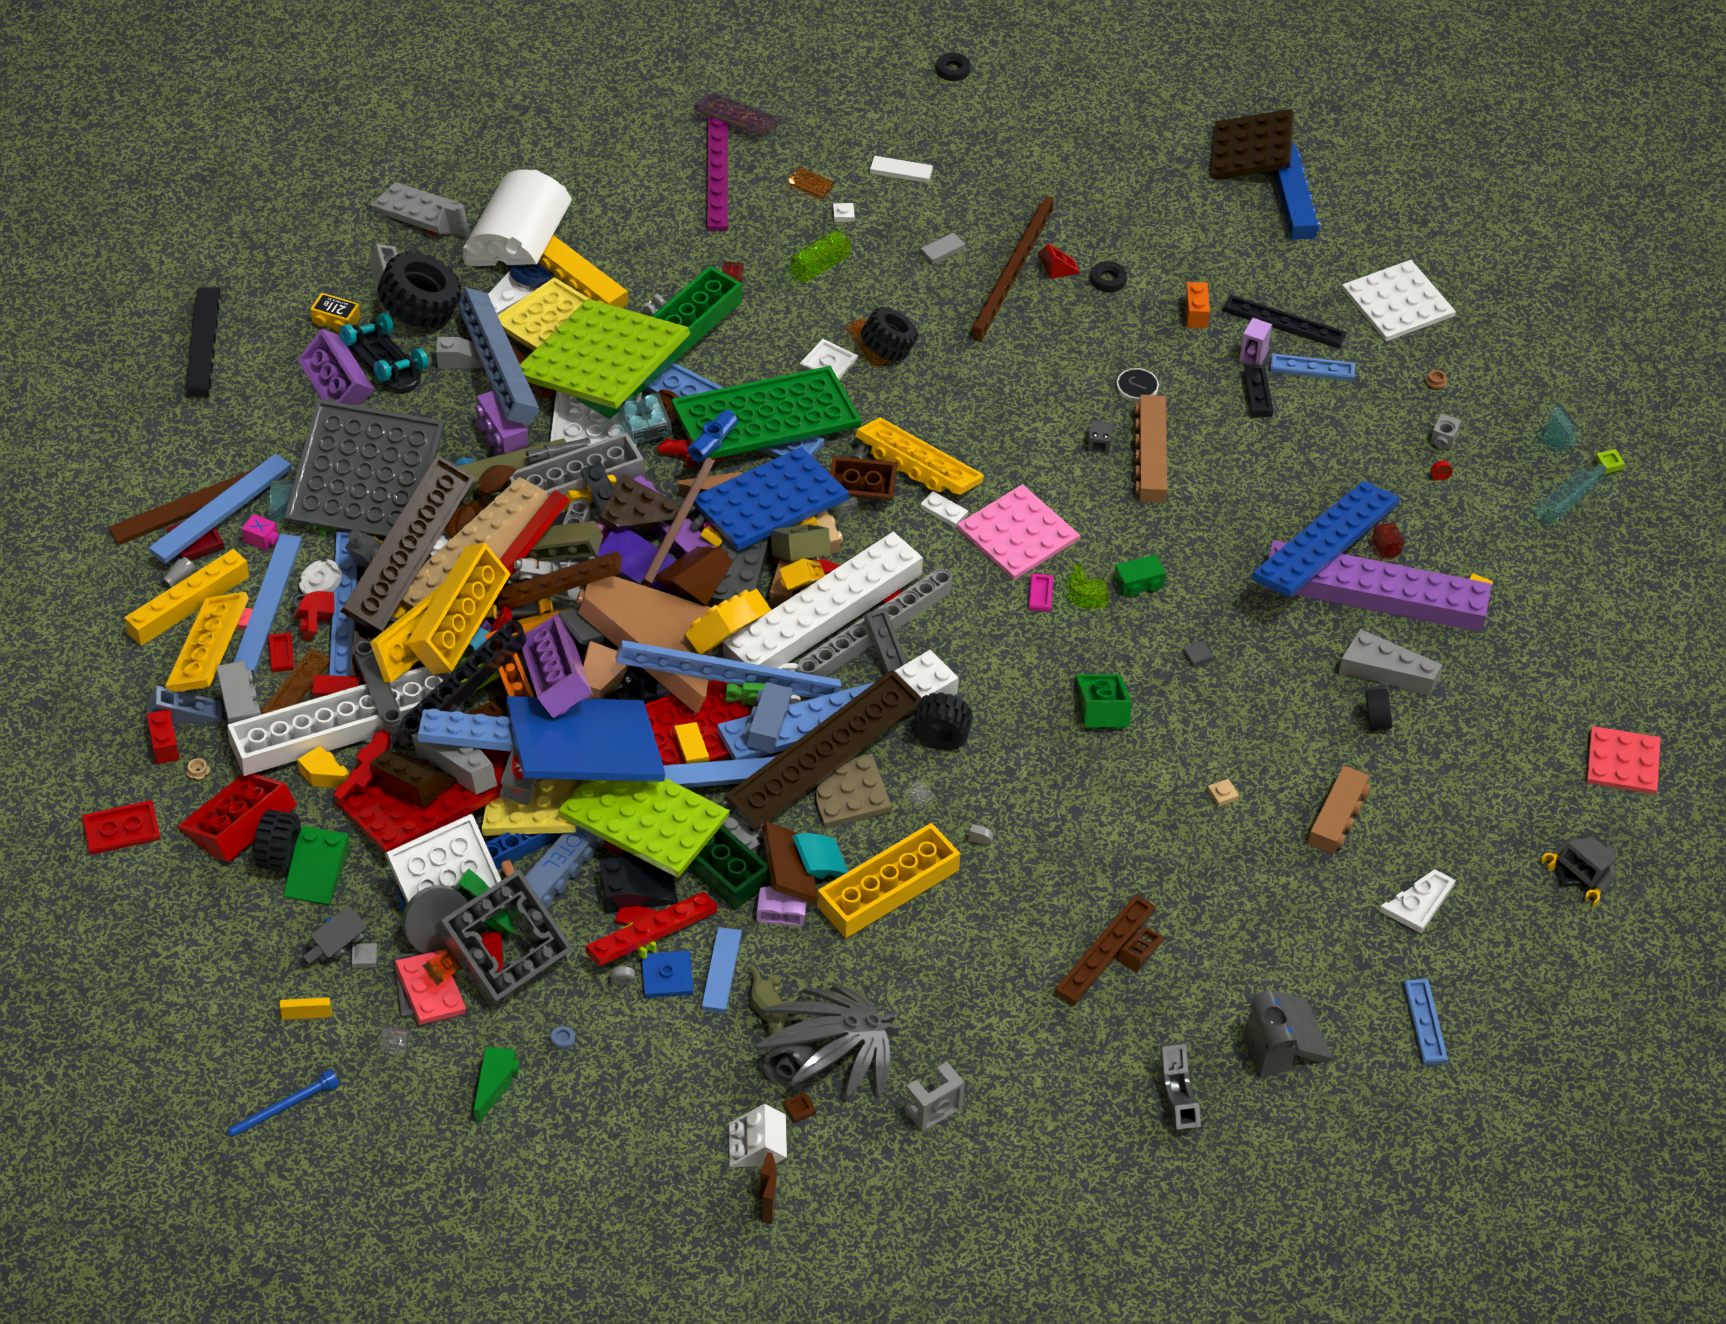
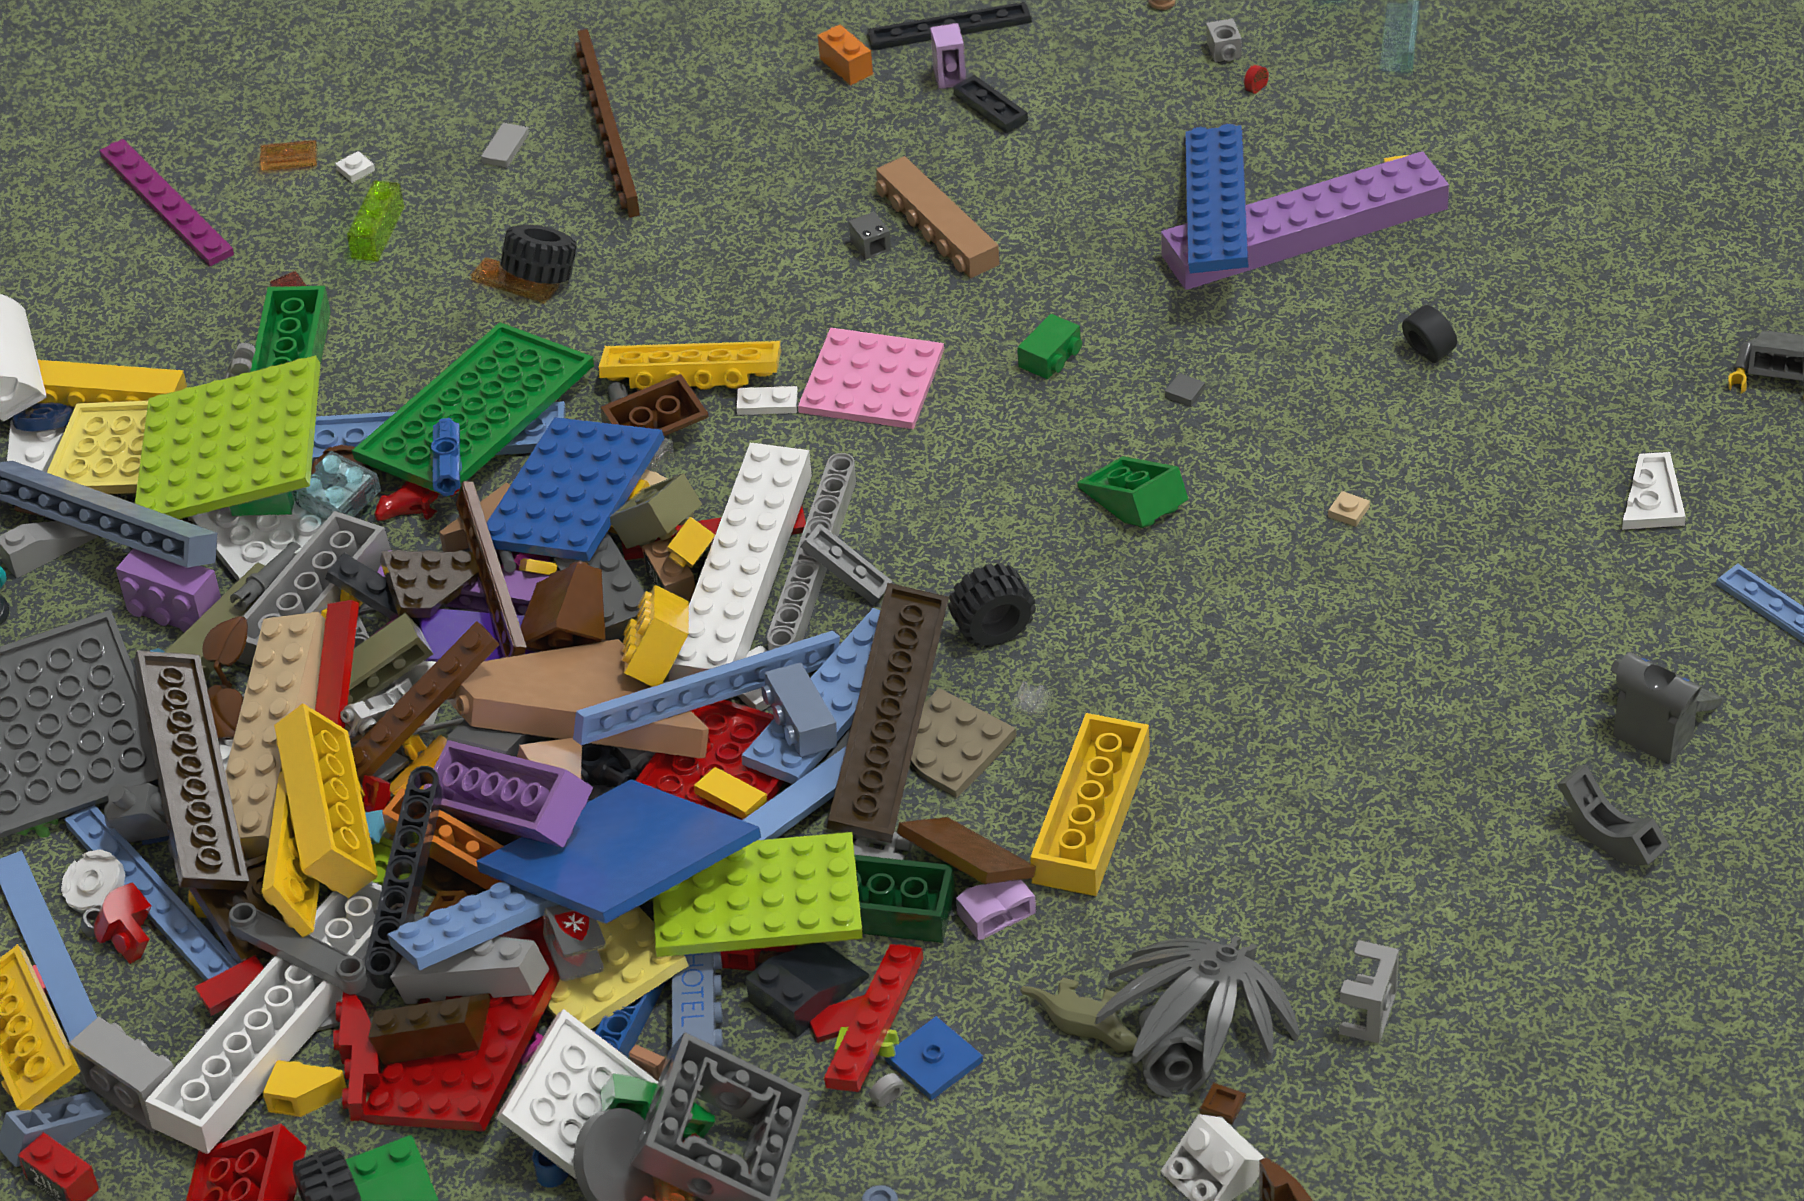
camera: 30 degrees left, 5 degrees down
(197, 764) = (133, 1177): tan plate -> none
(281, 652) = (117, 992): red tile -> none
(298, 681) = (174, 1009): clear orange plate -> none
(721, 970) = (991, 1015): medium blue tile -> none
(737, 113) = (133, 128): tile -> none
(746, 694) = (745, 704): bright green plate -> none
(820, 855) = (990, 824): teal slope -> none
(831, 355) = (479, 318): white tile -> none
(901, 169) = (379, 91): white tile -> none
(928, 675) = (929, 569): white brick -> none
(980, 835) = (1140, 700): light grey tile -> none
(1040, 592) = (957, 424): dark pink tile -> none
(1057, 262) = (647, 93): red slope -> none
(1087, 593) = (1008, 395): clear neon green brick -> none
(1104, 950) = (1387, 736): reddish brown plate -> none
(1106, 285) = (720, 89): black tyre -> none
(1132, 959) = (1422, 723): reddish brown slope -> none
(1135, 383) = (855, 166): black tile -> none
(1312, 367) = (1022, 53): medium blue tile -> none
(1339, 809) = (1487, 454): medium nougat brick -> none
(1388, 540) = (1270, 172): clear red brick -> none
(1389, 664) = (1395, 286): light grey wedge -> none
(1567, 877) = (1768, 386): black tile -> none
(1623, 760) = (1708, 248): coral plate -> none

